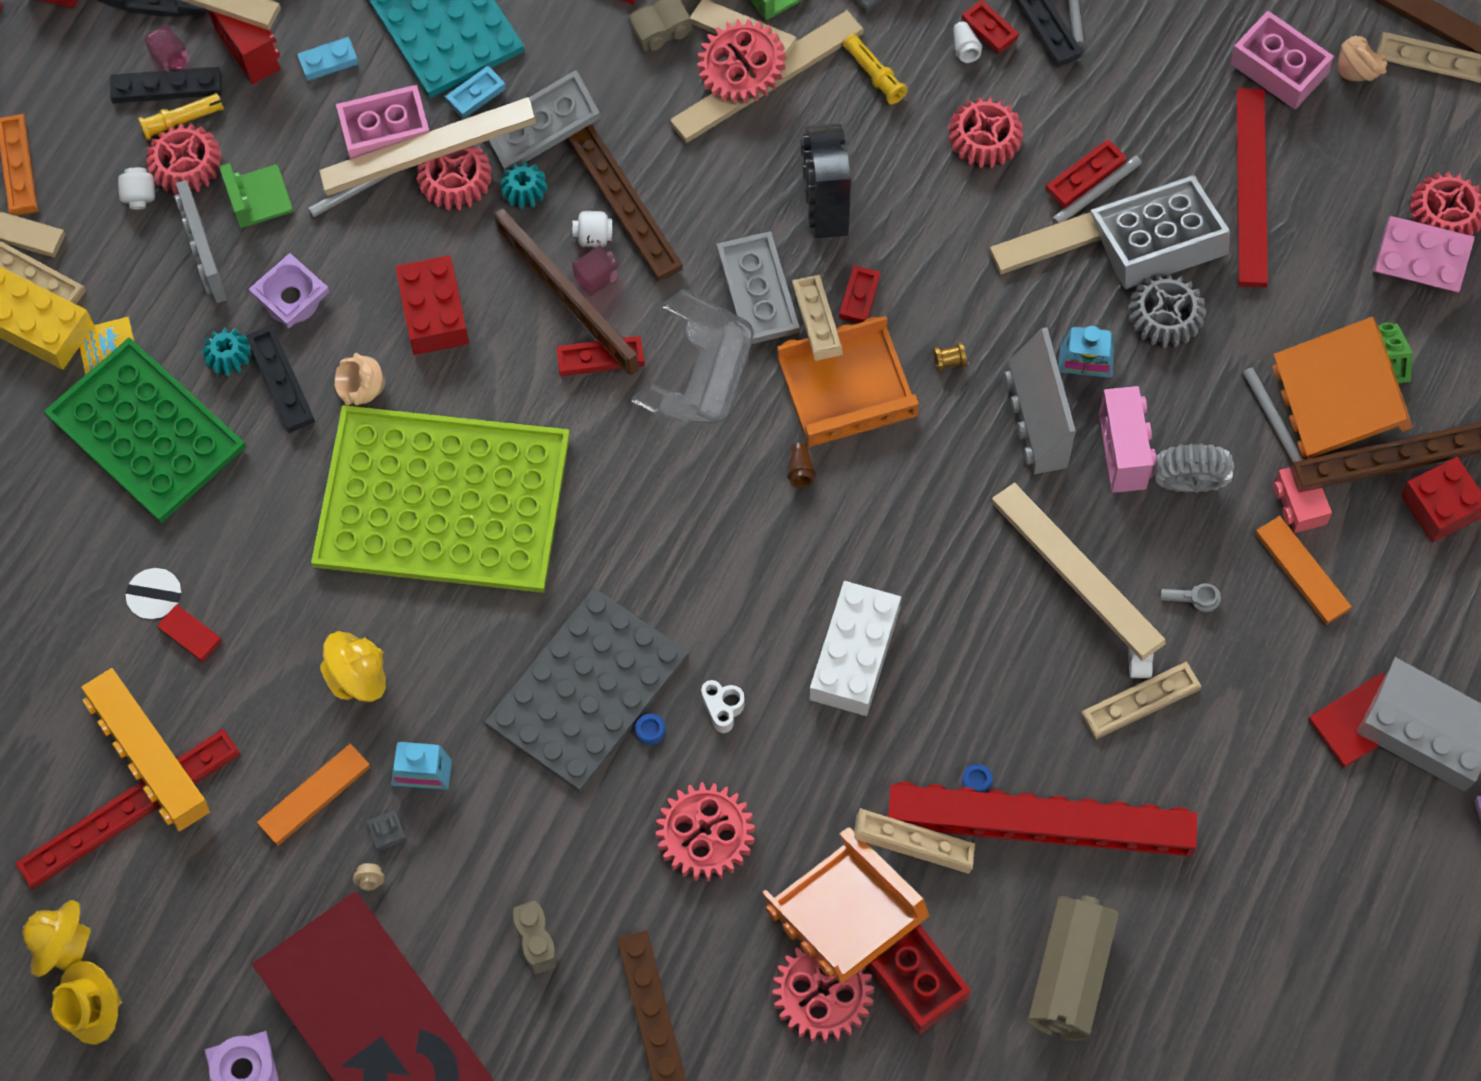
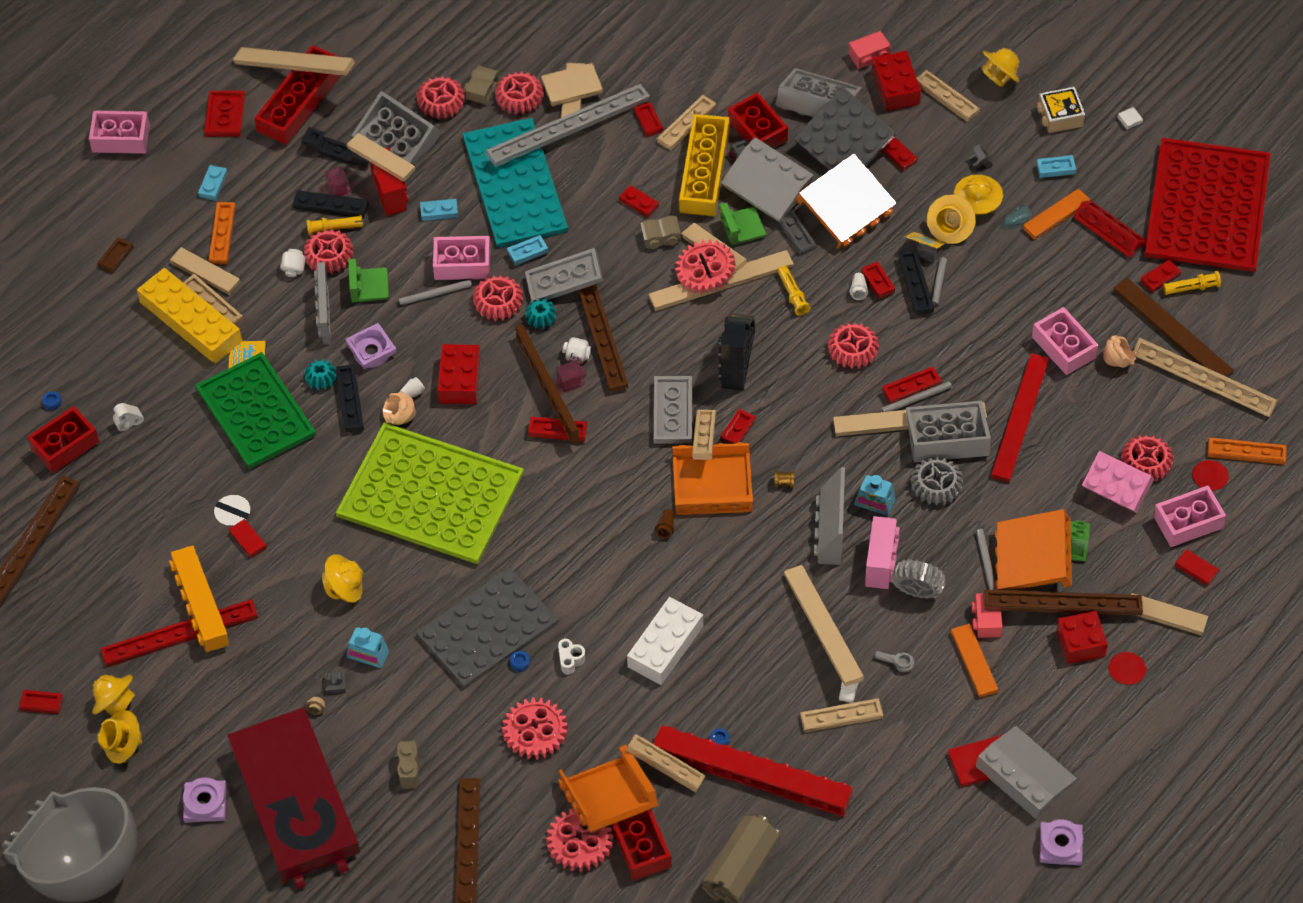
camera: 15 degrees right, 10 degrees down
(313, 794) = (296, 651): orange tile -> none
(368, 342) = (413, 387): none -> white cone
(428, 146) = (485, 275): tan tile -> none
(723, 351) = (638, 436): clear windscreen -> none

